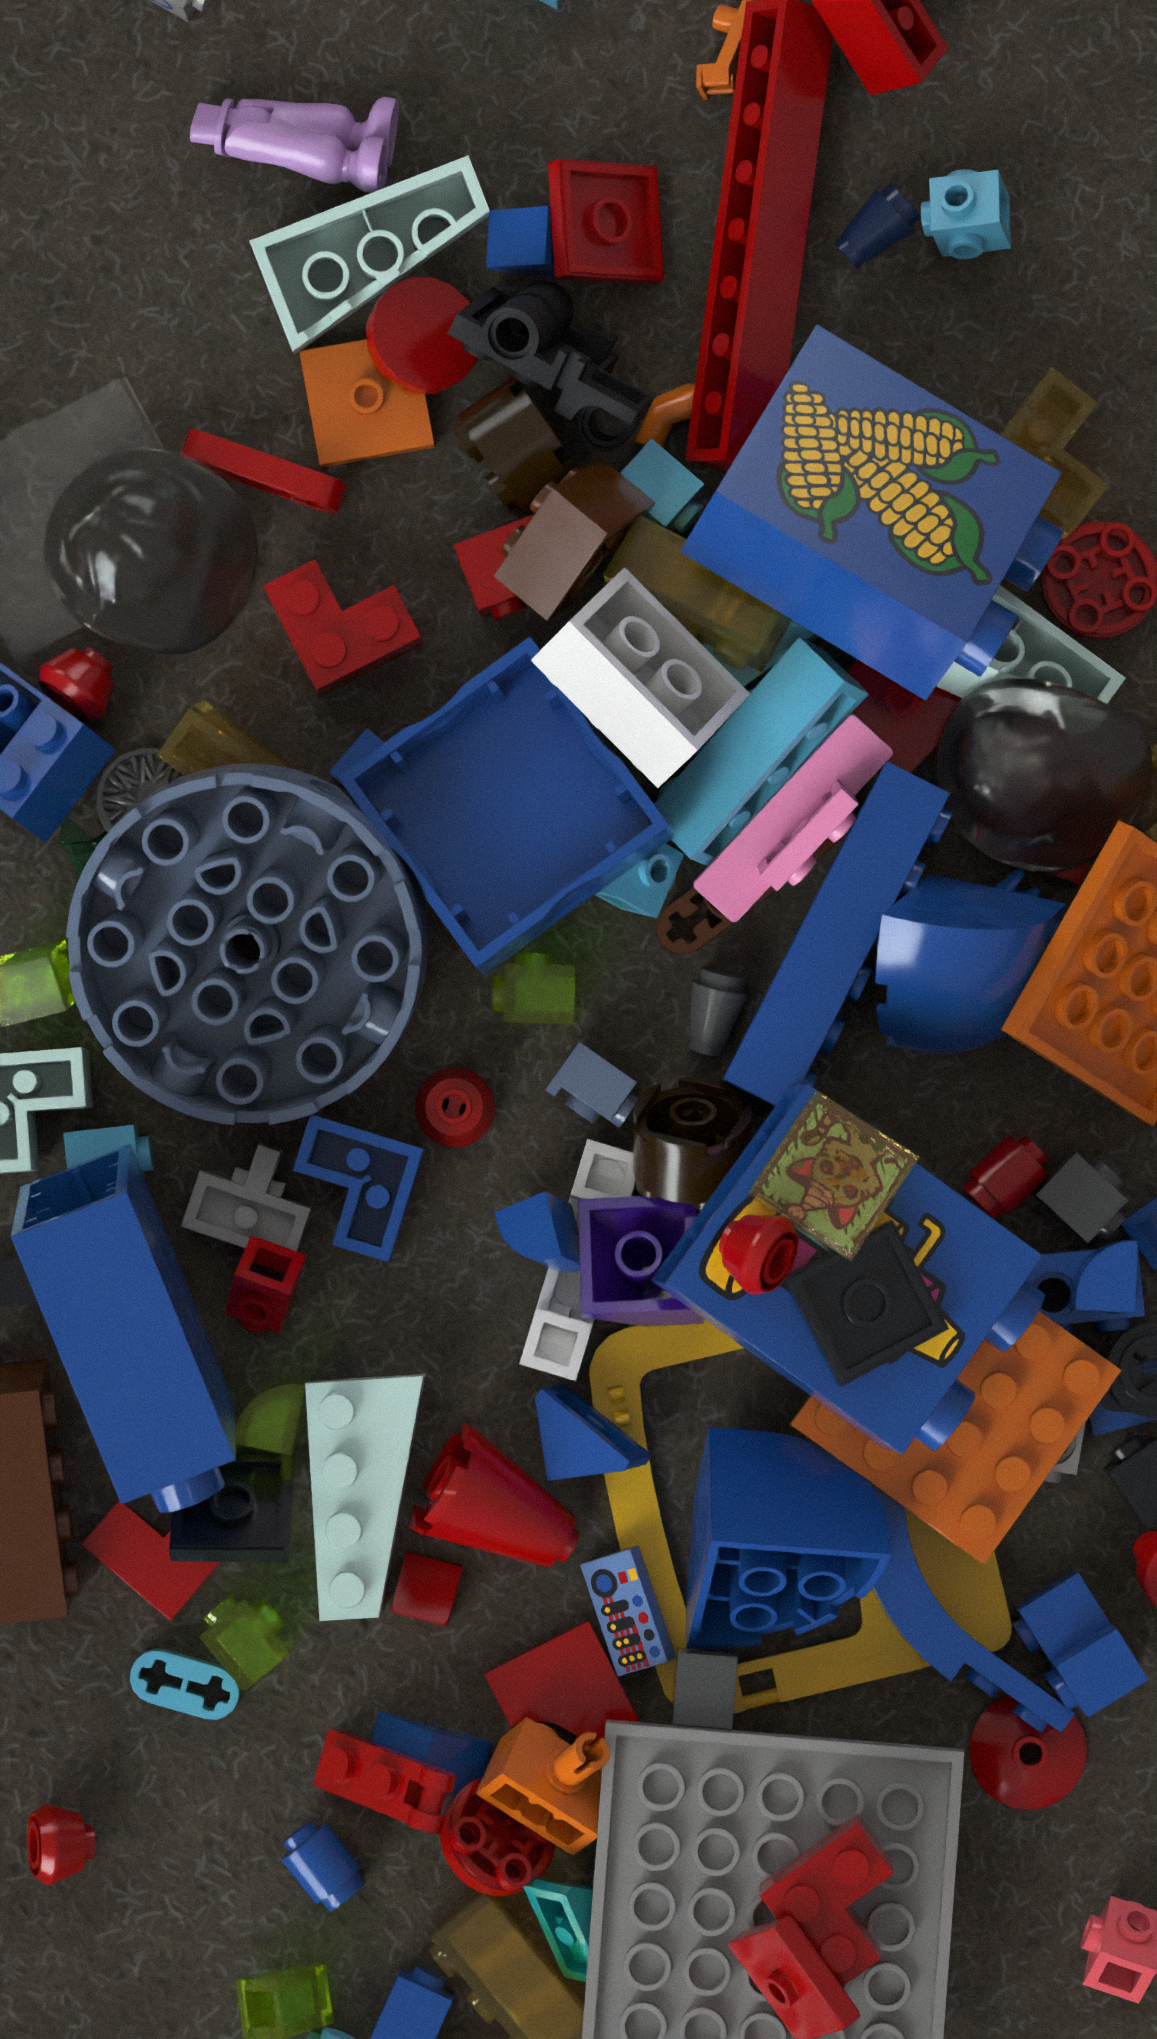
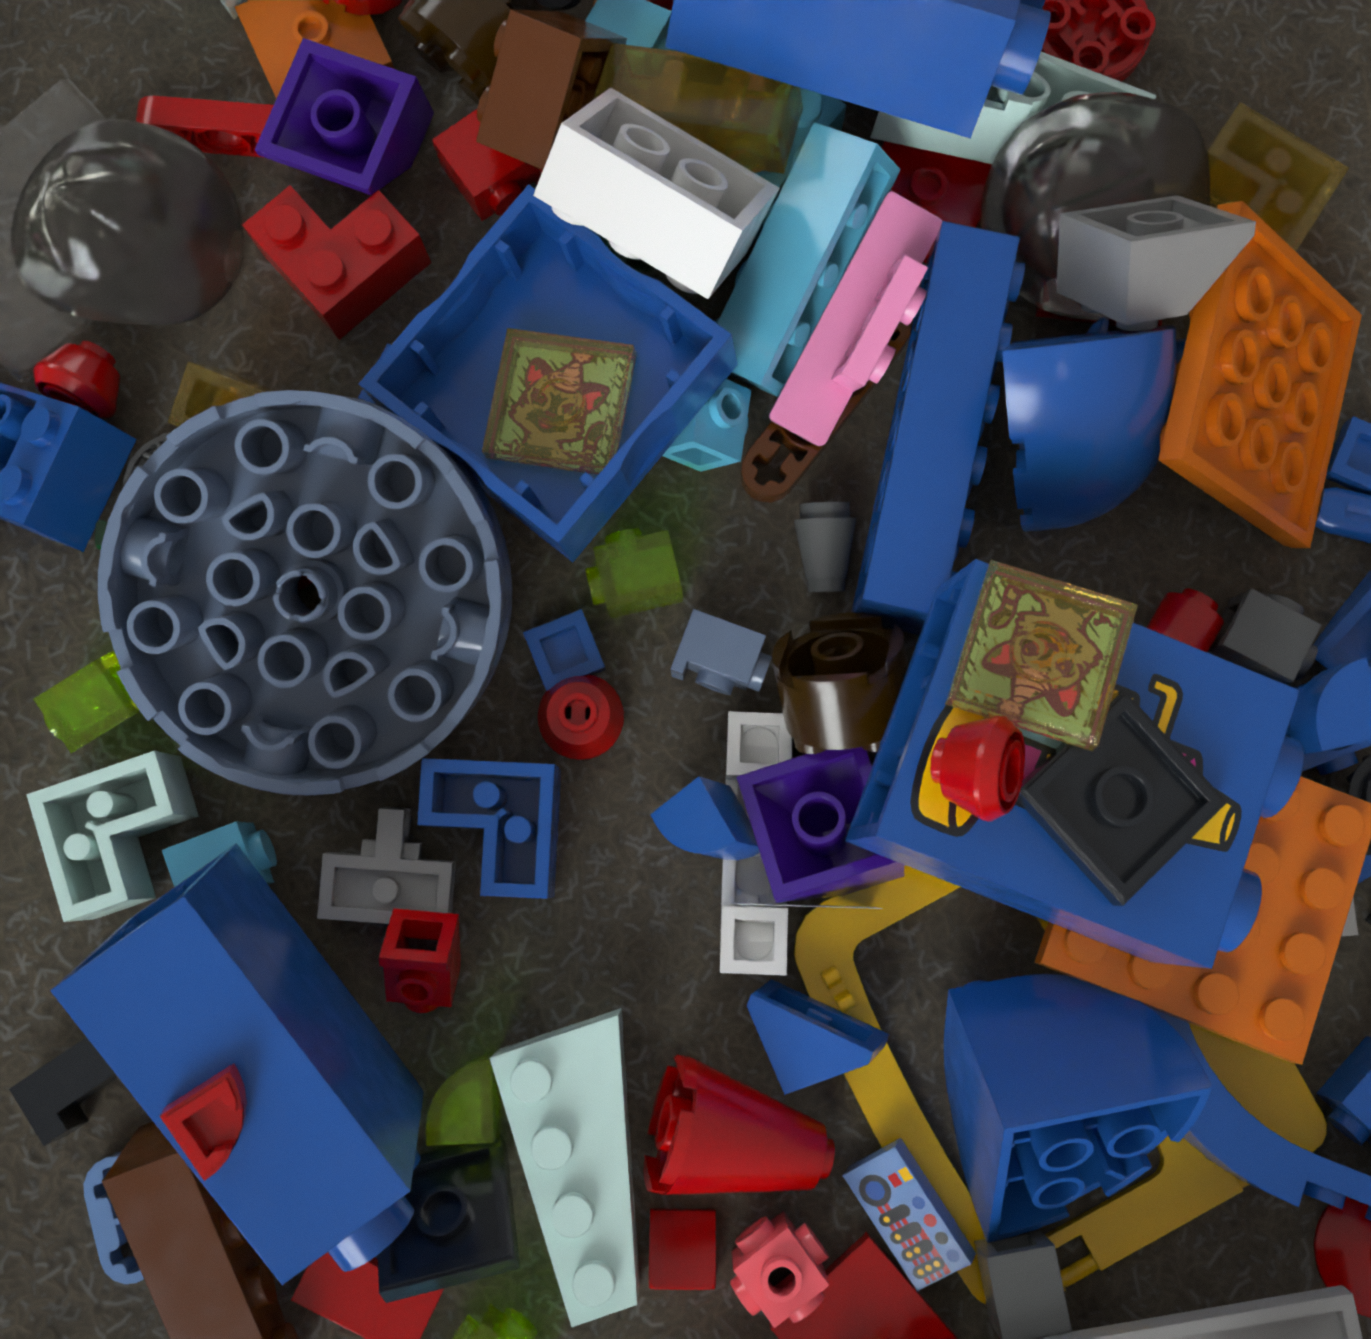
camera: 15 degrees left, 5 degrees down
(103, 1364) = (209, 1120): none -> red tile
(376, 507) = (346, 119): none -> dark purple slope
(455, 1043) = (564, 649): none -> blue tile
(508, 831) = (559, 401): none -> clear yellow tile
(512, 1602) = (774, 1245): none -> coral brick
(609, 1326) = (807, 905): none -> white sticker
(1046, 846) = (1146, 257): none -> light grey slope

